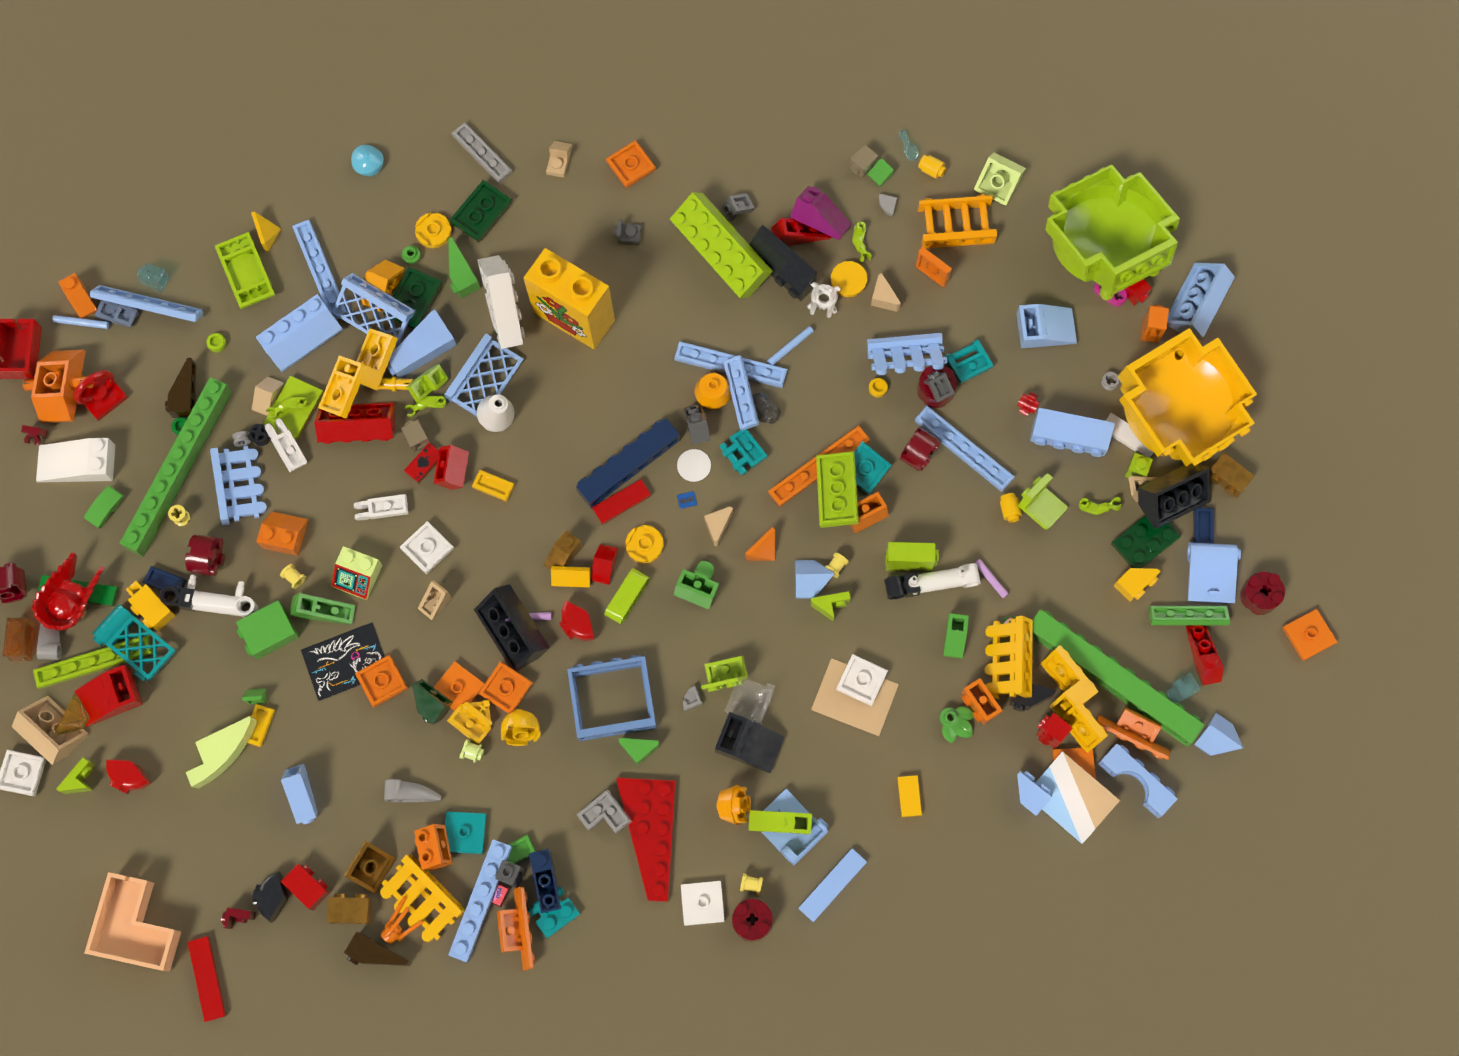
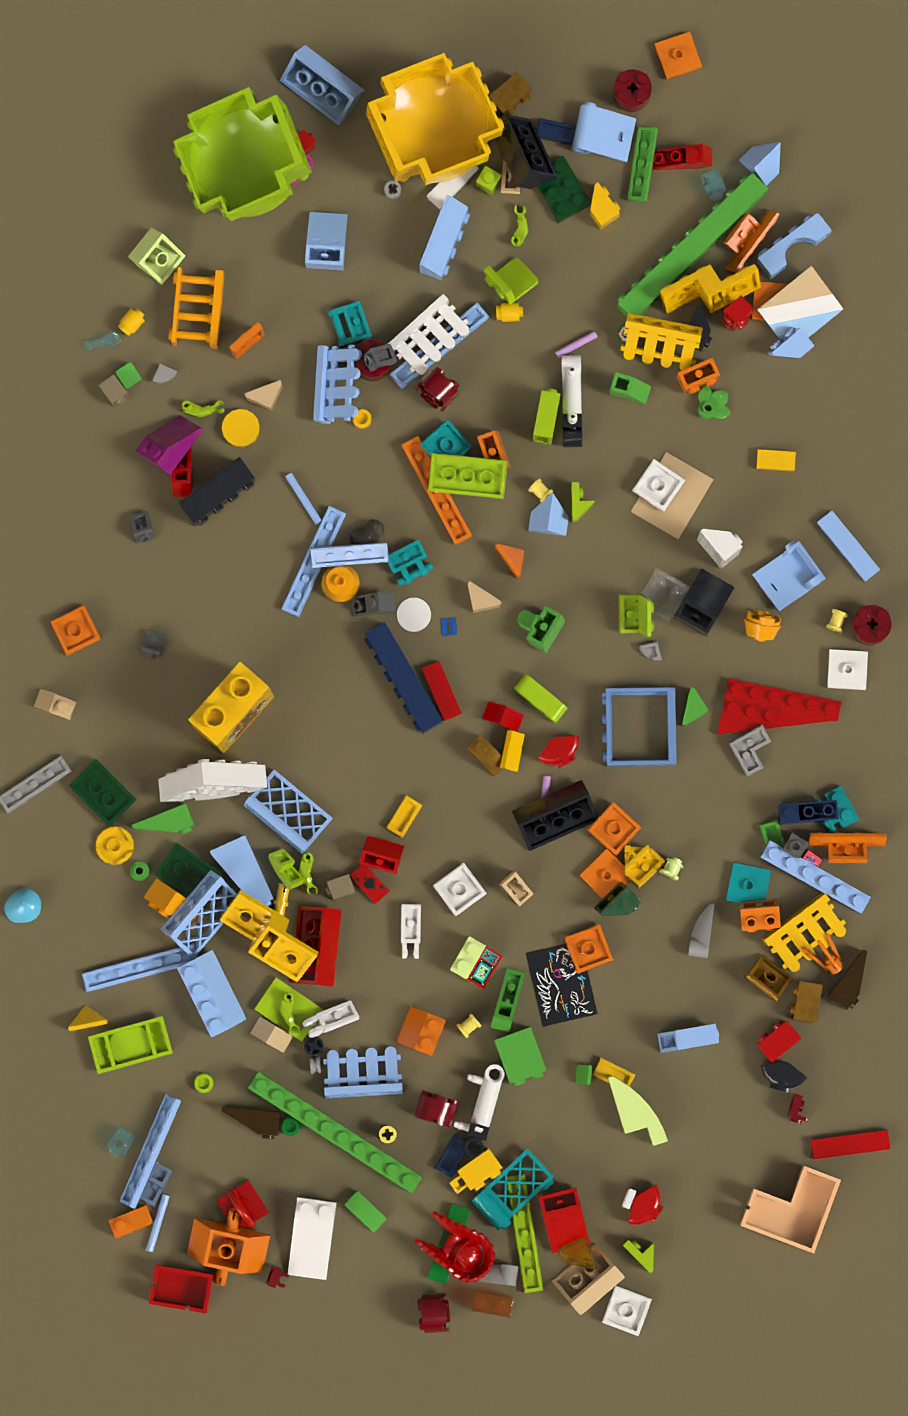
camera: 80 degrees left, 10 degrees up
(133, 757) = (628, 1198): none -> white tile
(495, 413) = (328, 804): white cone -> none
(519, 728) = (655, 818): yellow cylinder -> none
(644, 544) = (488, 674): yellow tile -> none
(721, 245) = (187, 550): lime brick -> none
(780, 822) = (785, 583): lime slope -> none
(806, 748) = (720, 545): none -> white slope
(816, 302) = (262, 465): white piece -> none
(986, 429) = (418, 338): none -> white fence
(1028, 403) = (405, 274): red gear -> none
(1154, 324) = (343, 134): orange brick -> none

